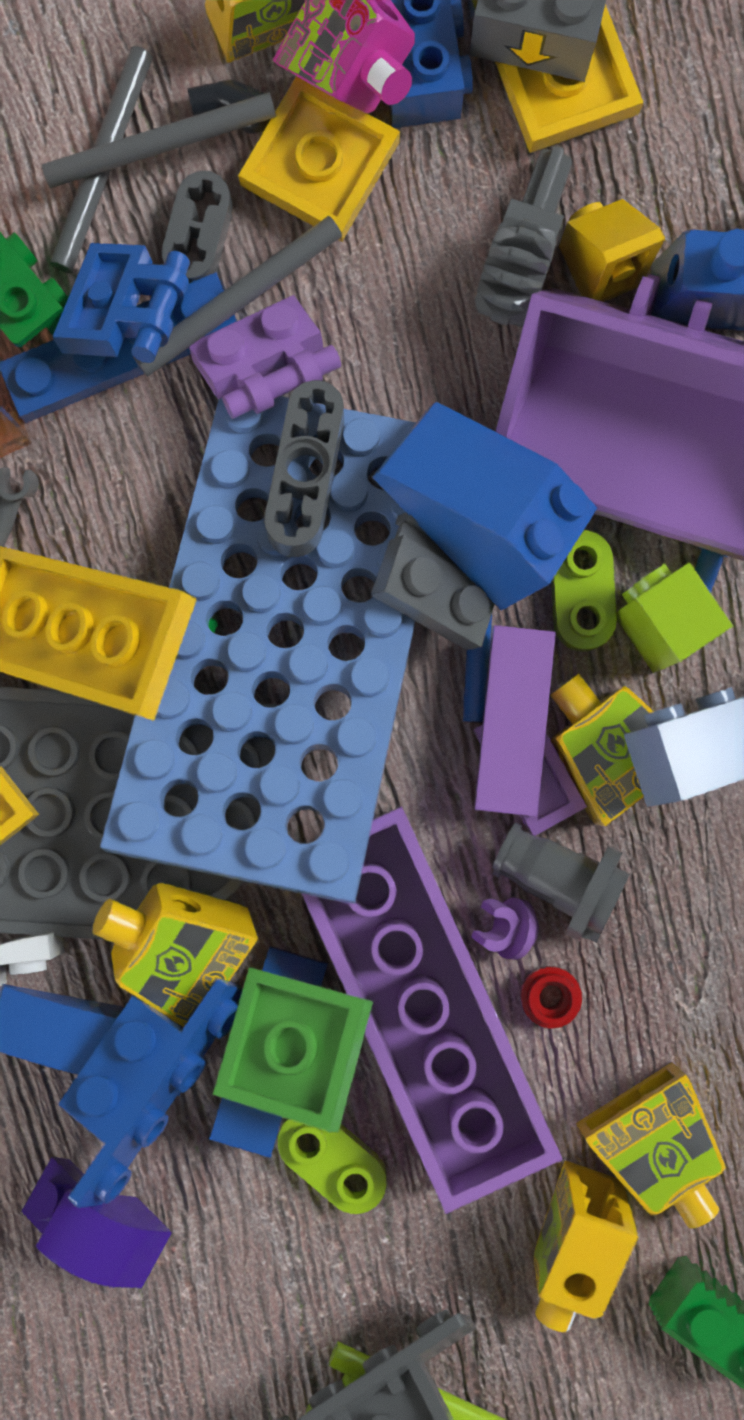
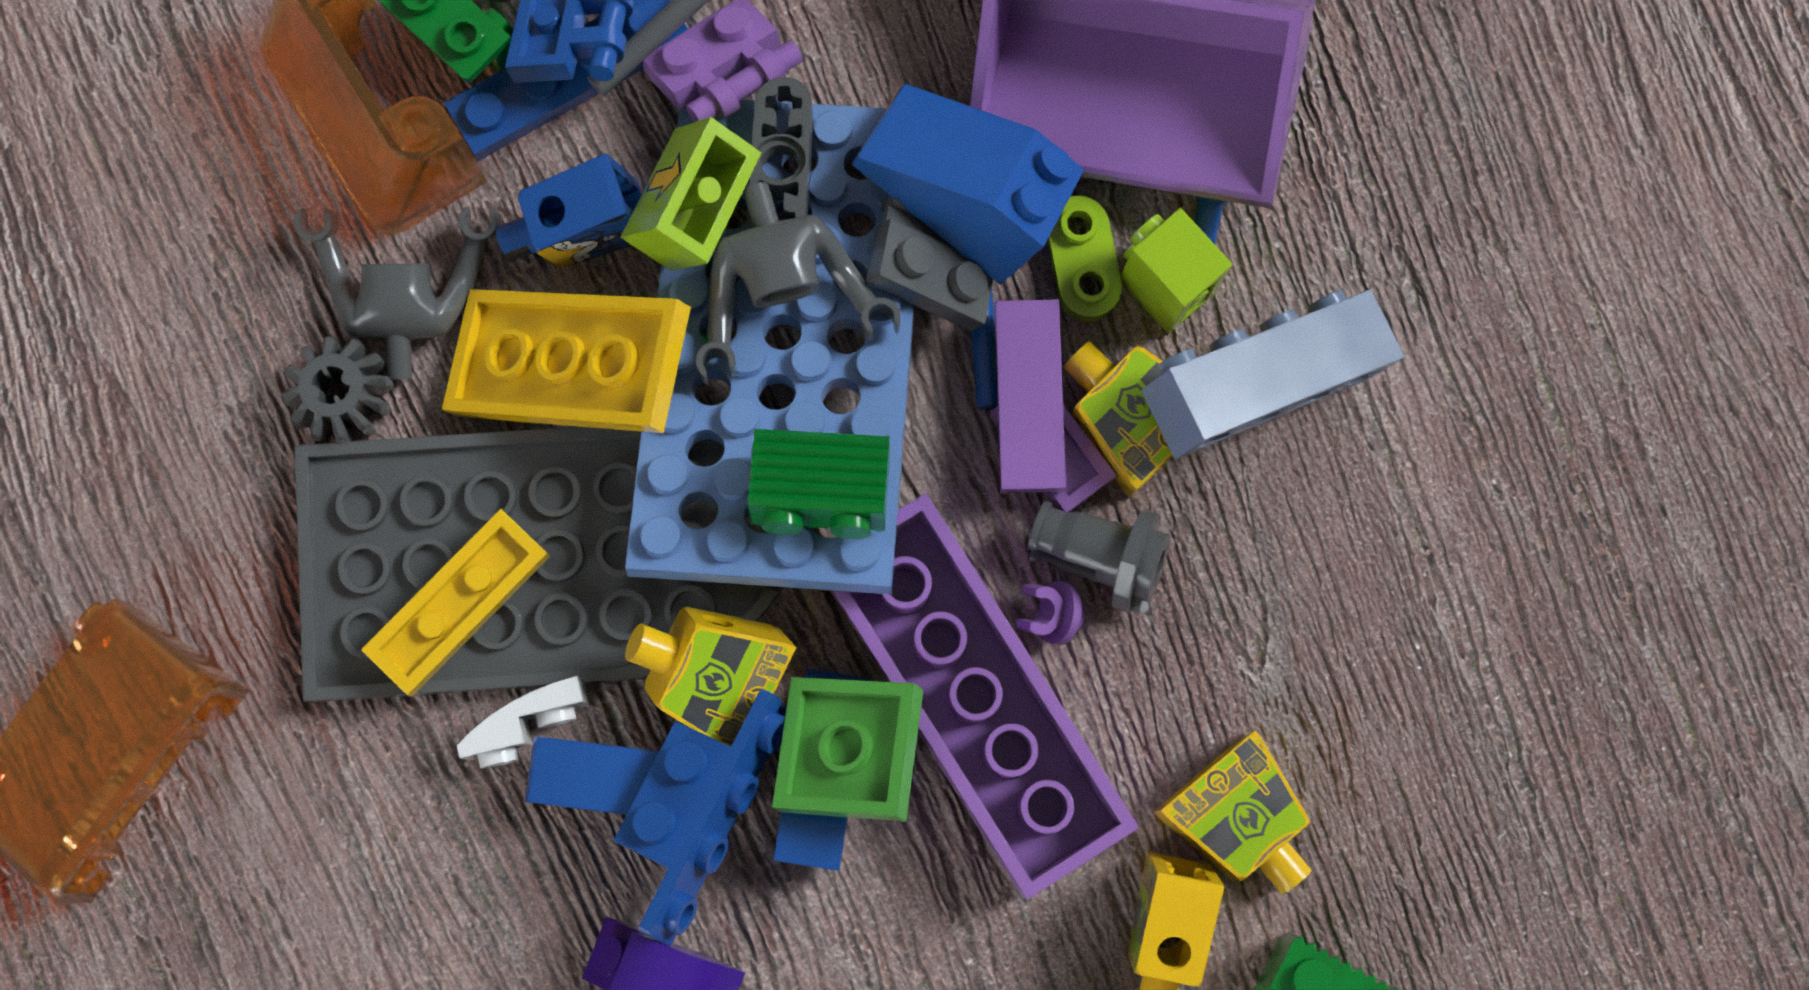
camera: 15 degrees left, 5 degrees down
(108, 489) = (573, 214): none -> blue torso
(213, 487) = (691, 194): none -> lime brick
(287, 571) = (779, 268): none -> dark grey piece
(296, 793) = (819, 482): none -> green brick
(332, 1163) = (902, 881): lime plate -> none
(564, 1010) = (1126, 670): red plate -> none

